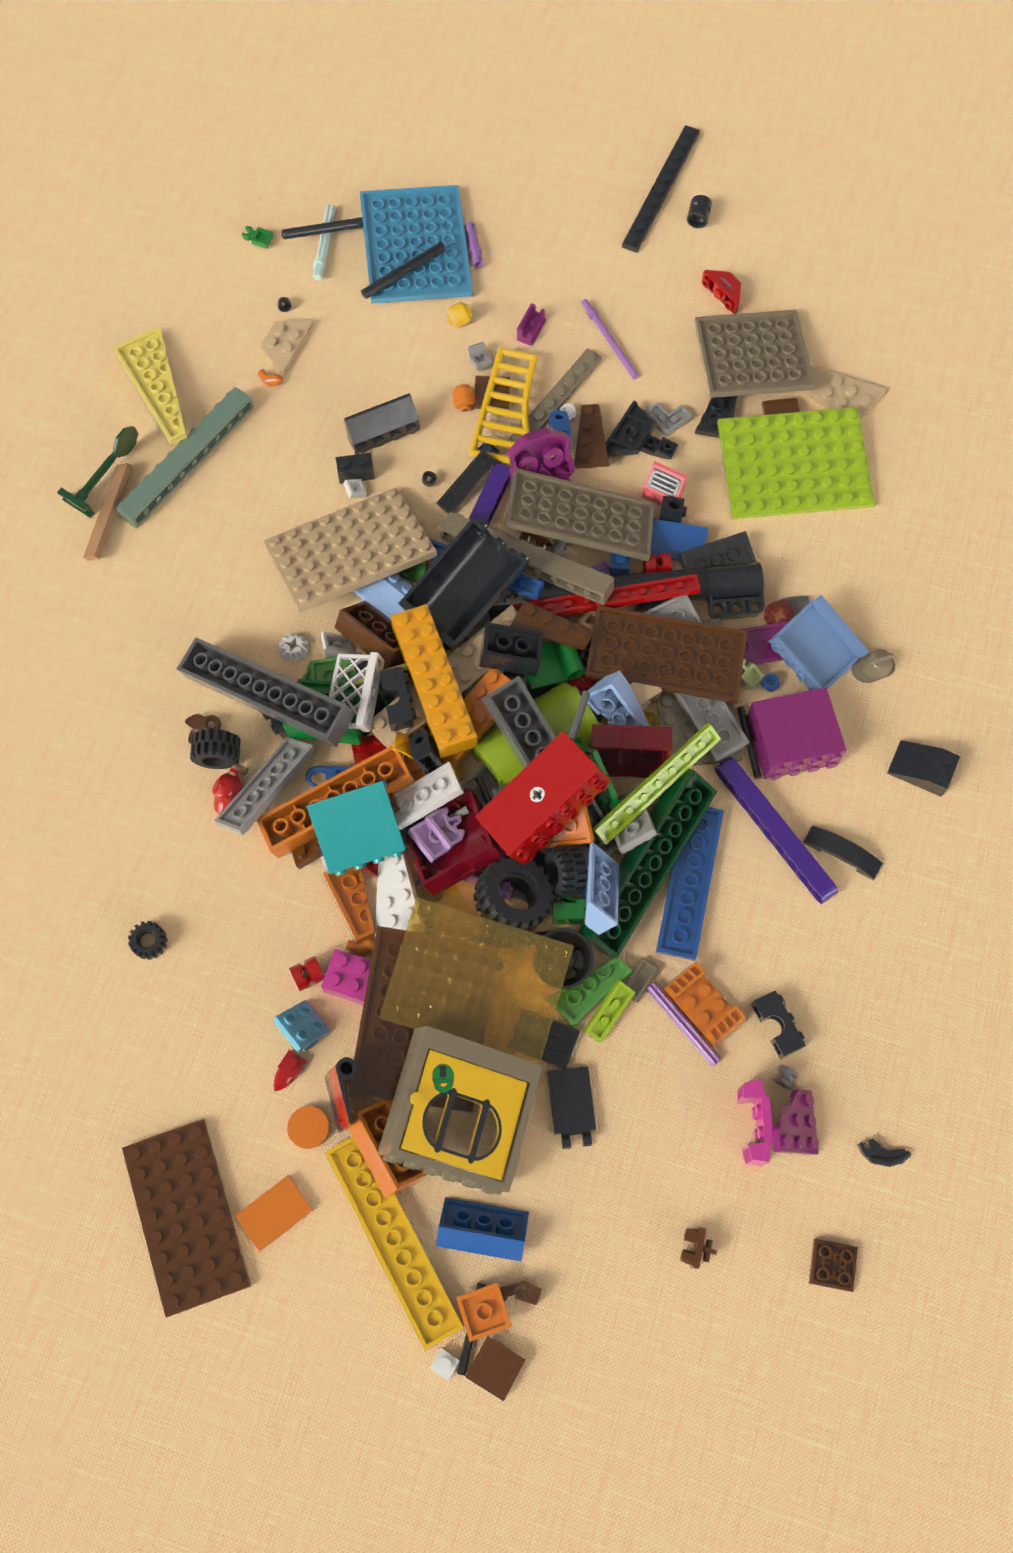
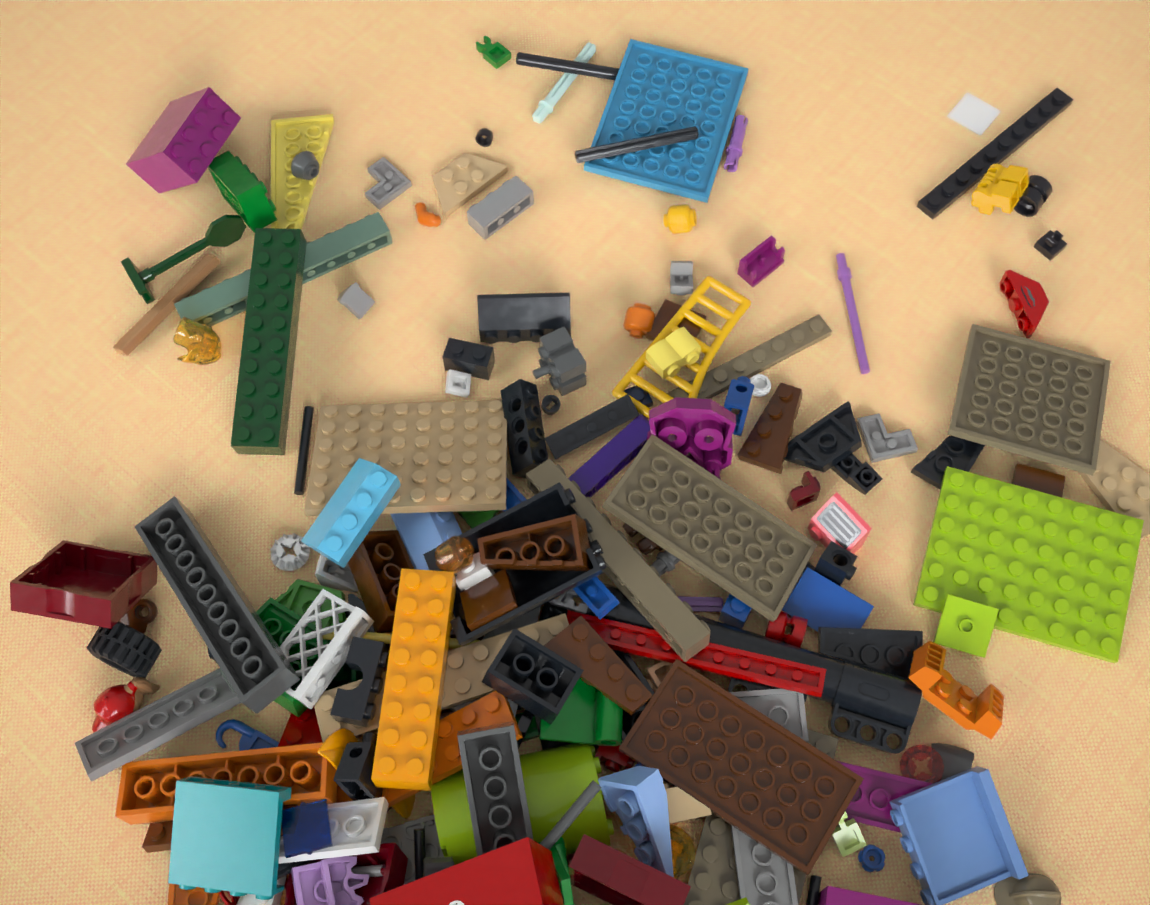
camera: 25 degrees right, 5 degrees down
(59, 384) = (184, 141): none -> magenta brick
(125, 406) = (242, 190): none -> green brick
(149, 527) = (199, 340): none -> clear yellow helmet
(163, 371) = (305, 165): none -> dark grey cone
(165, 716) = (84, 584): none -> dark red tile
(205, 506) = (269, 342): none -> dark green brick
(229, 363) = (390, 184): none -> light grey tile
(249, 457) = (356, 300): none -> light grey tile
(266, 575) = (303, 450): none -> black bar
(323, 352) = (500, 207): none -> light grey brick
(333, 594) = (352, 511): none -> medium azure slope
(408, 799) = (306, 828): none -> clear blue piece
(419, 499) = (524, 427): none -> black brick
(421, 593) = (454, 554): none -> clear orange head
(424, 445) = (561, 361): none -> dark grey brick
(439, 603) = (473, 573): none -> white brick
(457, 614) = (488, 600): none -> reddish brown tile
(478, 565) = (541, 546): none -> reddish brown wedge
(501, 409) = (673, 352): none -> light yellow brick
(631, 472) = (804, 495): none -> dark red bracket
(634, 164) = (974, 113): none -> white sticker
(676, 212) = (1000, 188): none -> yellow hips
(725, 242) = (1050, 244): none -> black tile
(771, 518) = (965, 625): none -> lime plate
(803, 567) = (956, 700): none -> orange plate

